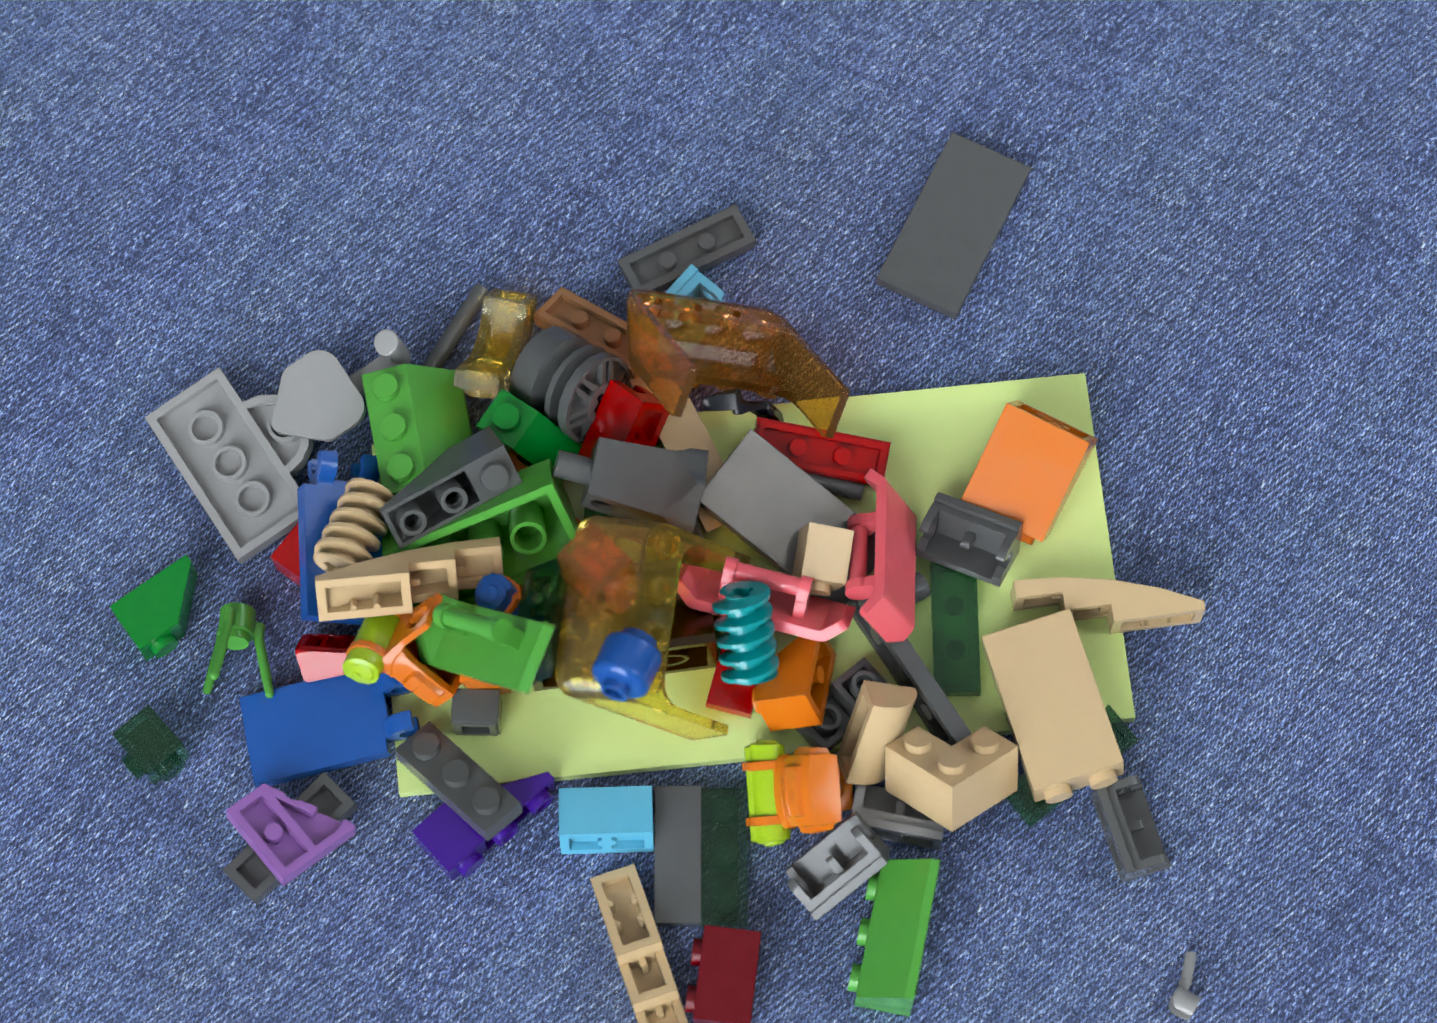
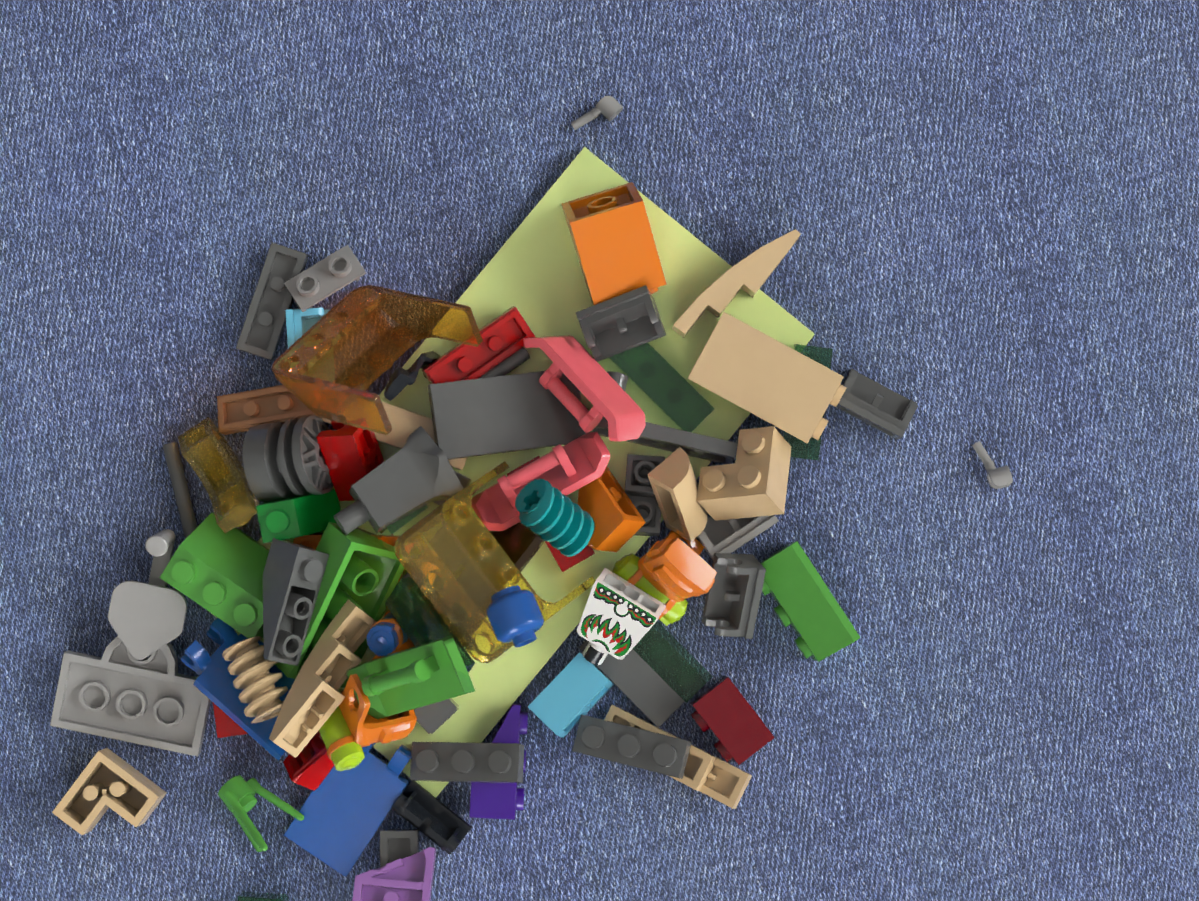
camera: 50 degrees left, 15 degrees up
(135, 506) = (105, 785): none -> tan brick
(159, 609) = (182, 832): green slope -> none
(378, 805) = (431, 817): none -> black hinge
(599, 572) = (446, 579): clear orange brick -> none
(615, 911) = (632, 746): none -> dark grey plate
(713, 781) = (616, 617): none -> torso
(740, 270) = (325, 278): none -> light grey hinge
(823, 555) = (549, 422): tan brick -> none
(953, 225) = (414, 126): dark grey tile -> none
(1138, 358) = (607, 106): none -> light grey hand

